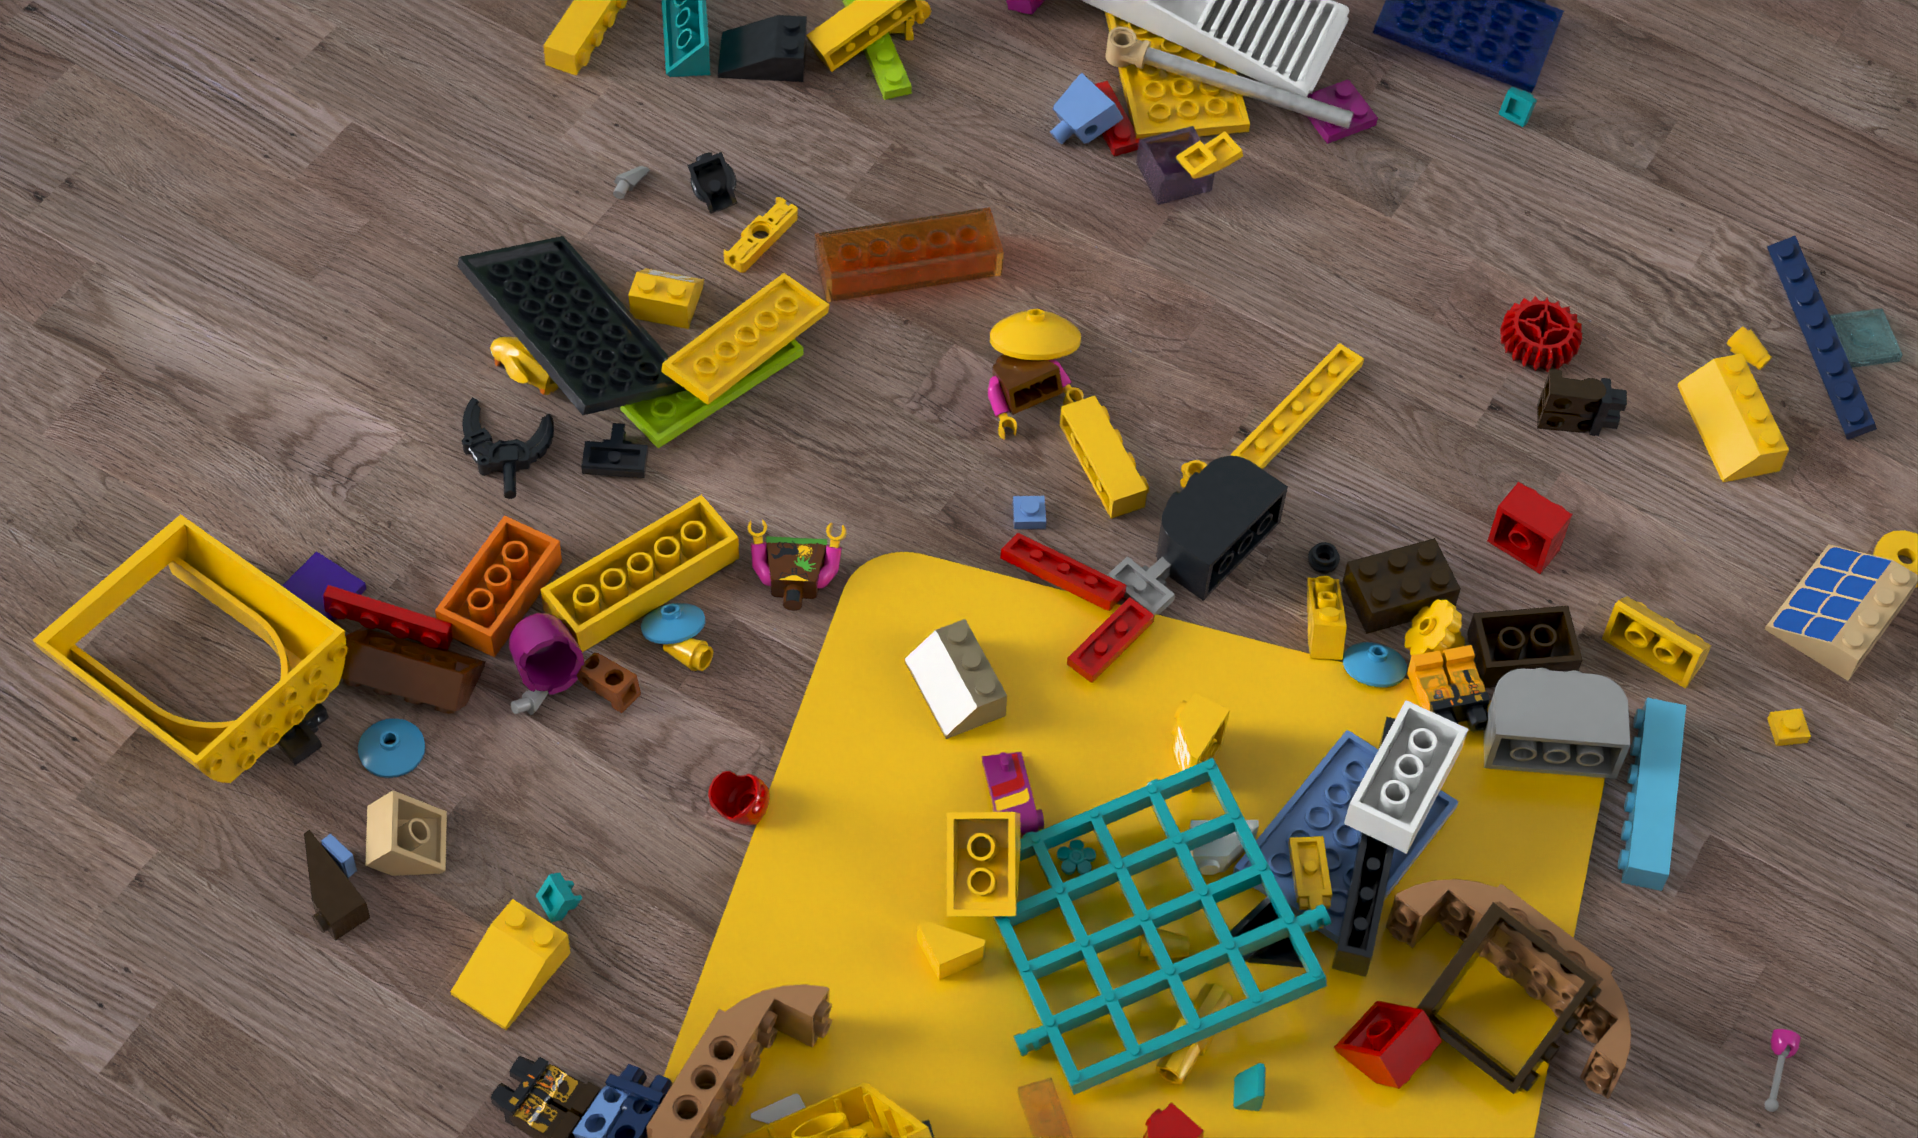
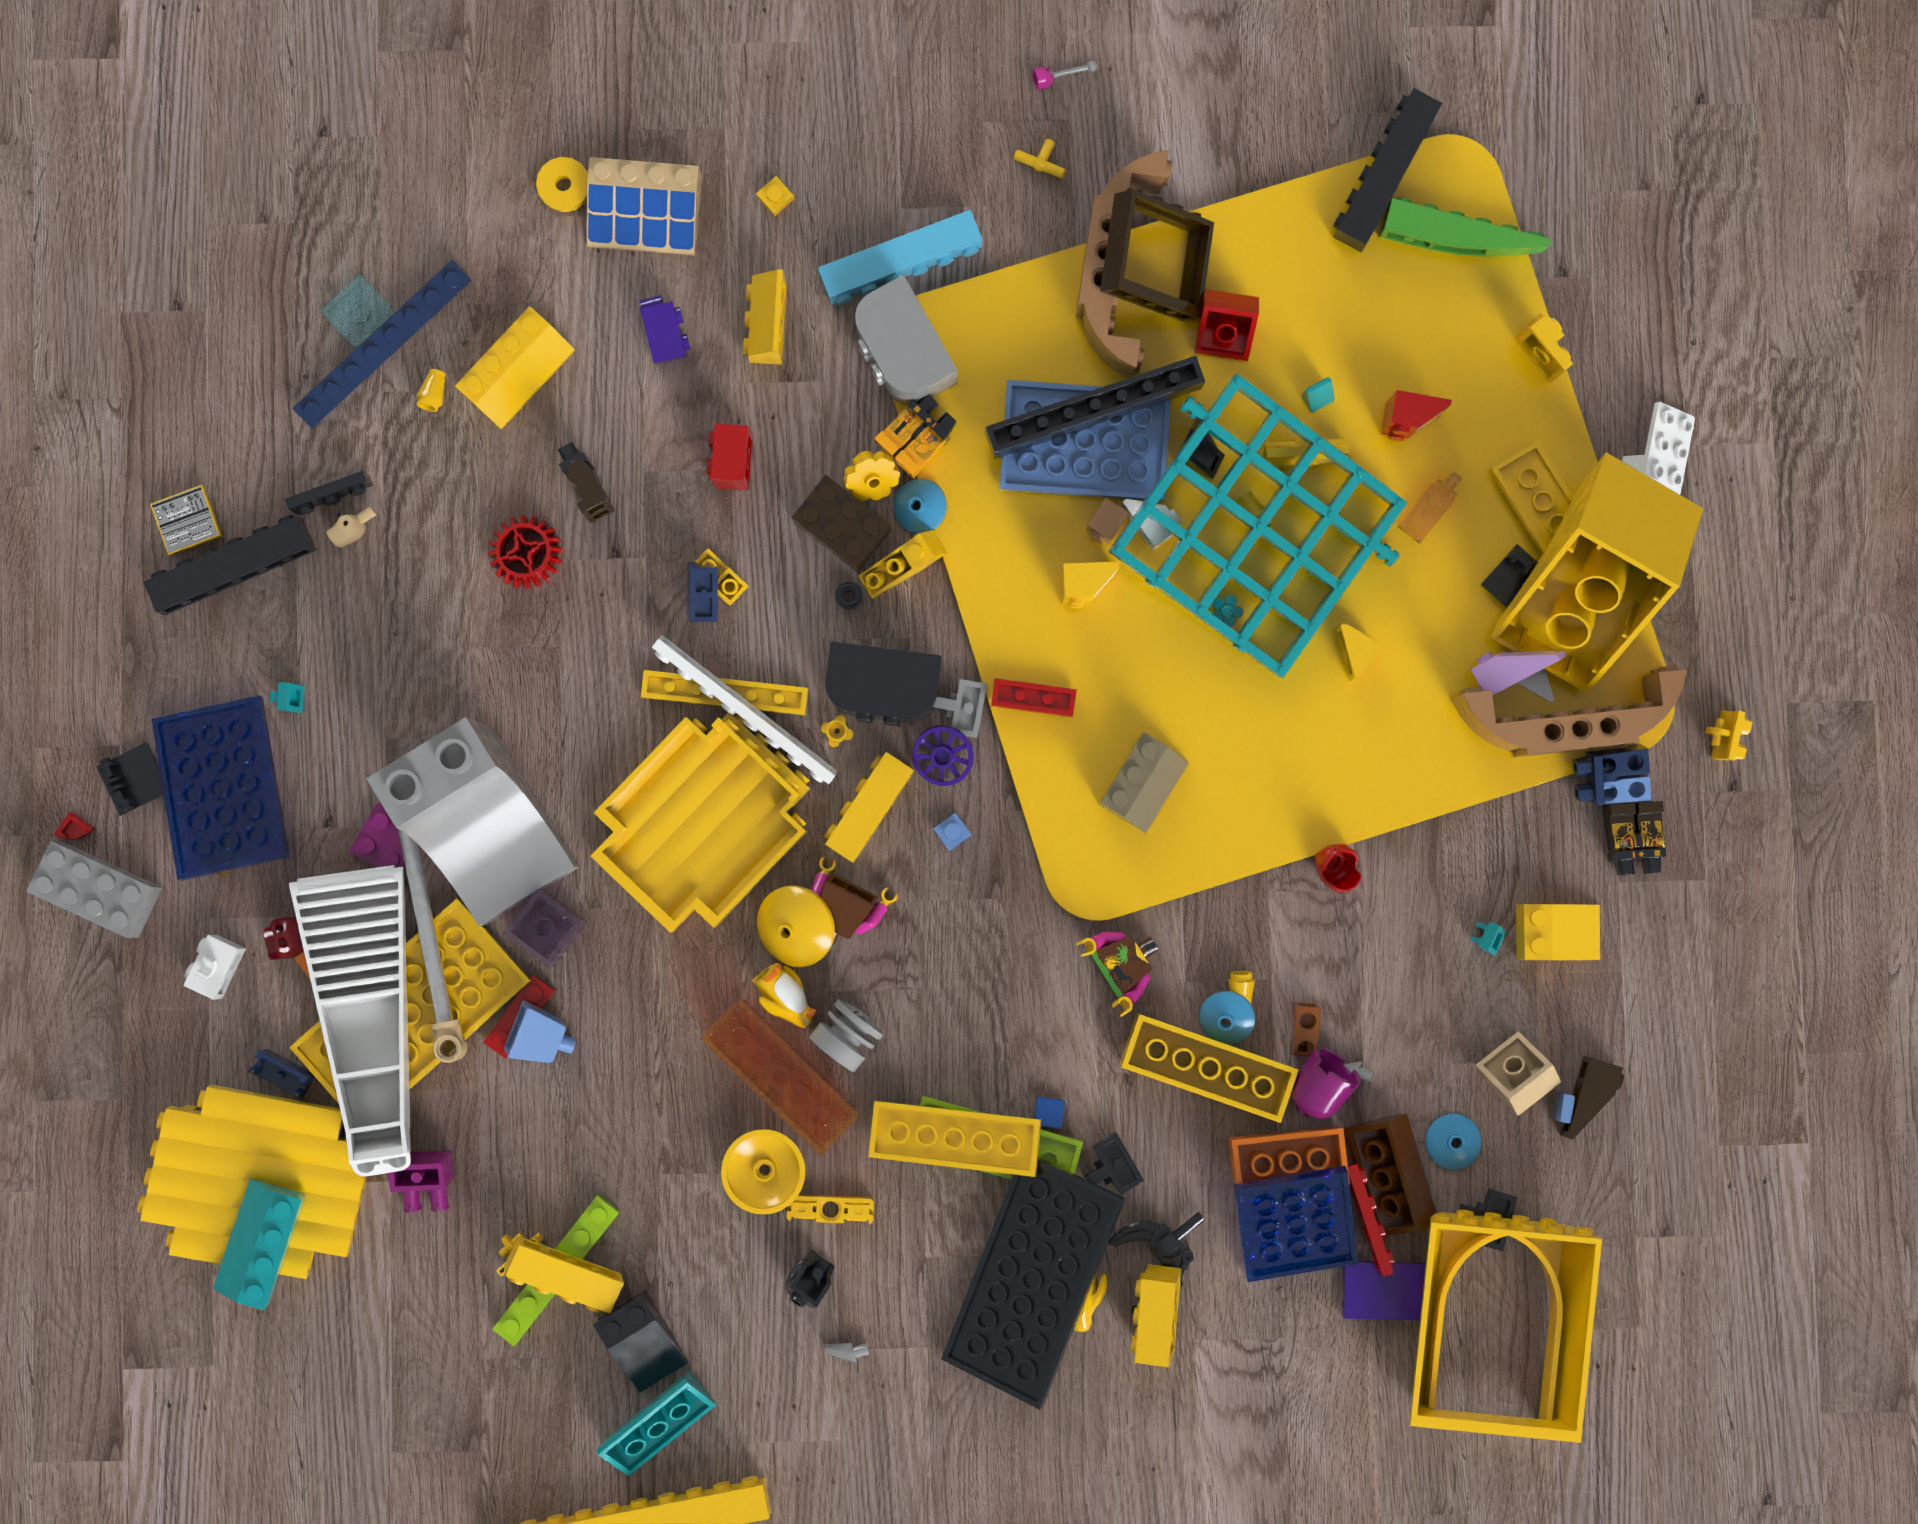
camera: 125 degrees left, 30 degrees up
(438, 549) = (1296, 1223): none -> clear blue plate
(456, 395) = (1156, 1315): none -> yellow brick
(664, 297) = (940, 1238): yellow slope -> none
(706, 437) = (1049, 1111): none -> blue tile
(819, 1073) = (1508, 668): none -> lavender slope
(835, 196) = (759, 1191): none -> yellow dish
(905, 315) = (846, 1035): none -> light grey wheel
(978, 295) = (784, 995): none -> animal
(982, 863) = (1288, 662): yellow slope -> none
(1011, 789) = (1208, 686): magenta door -> none
(1063, 571) = (994, 770): red plate -> none
(1109, 540) = (943, 755): none -> dark purple wheel
(1187, 327) = (701, 821): none -> yellow panel
(1209, 158) = (533, 898): yellow slope -> none
(1251, 799) = (1106, 521): none -> medium nougat brick
(1269, 403) = (735, 703): none -> white plate
(1310, 872) = (1143, 440): yellow hinge -> none
(1323, 159) = (474, 818): none -> light grey brick
(1405, 776) = (1050, 403): white brick -> none
(1409, 432) = (702, 592): none -> dark blue hinge
(1415, 469) = (729, 583): none -> yellow slope
(1523, 641) = (840, 406): dark brown brick -> none
(1650, 221) = (350, 527): none -> tan piece
(1671, 127) = (229, 565): none -> black brick
(1686, 986) = (1040, 162): none -> yellow piece
(1694, 225) = (329, 493): none -> black plate
(1699, 549) = (664, 330): none -> dark purple hinge
(1734, 120) = (186, 520): none -> light grey tile

